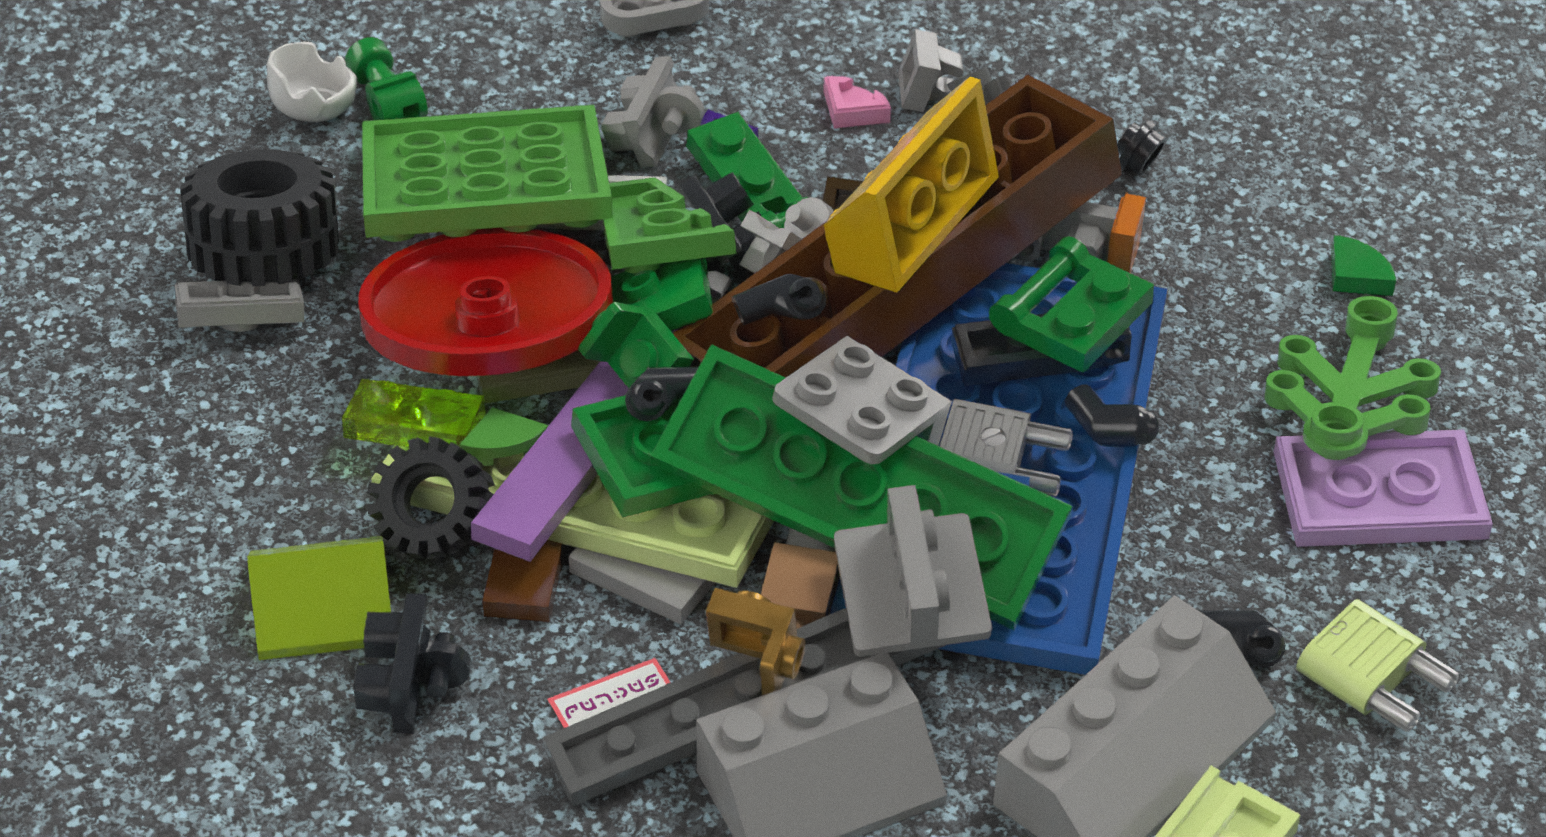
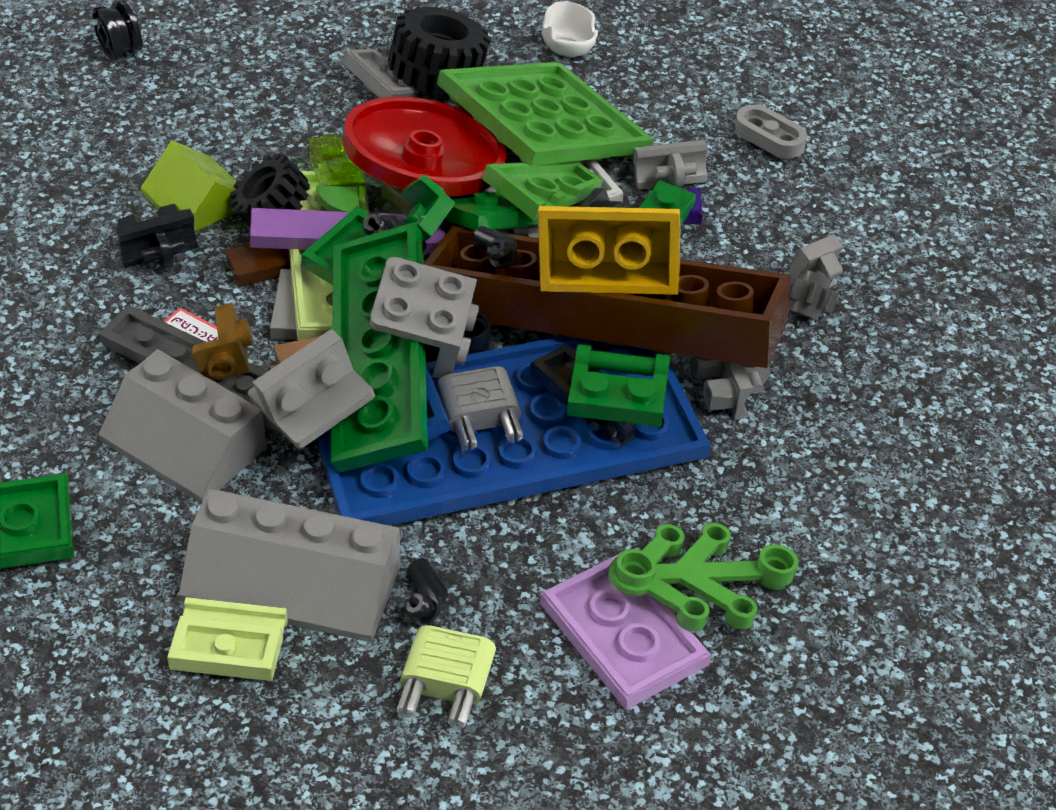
camera: 60 degrees right, 0 degrees up
(386, 93) = (590, 65): green leg -> none
(854, 105) = (768, 248): bright pink tile -> none
(1111, 423) = (547, 452): black arm -> none
(1126, 232) = (747, 410): orange tile -> none
(1140, 146) = (844, 389): black plate -> none
(1360, 268) = (833, 546): green tile -> none

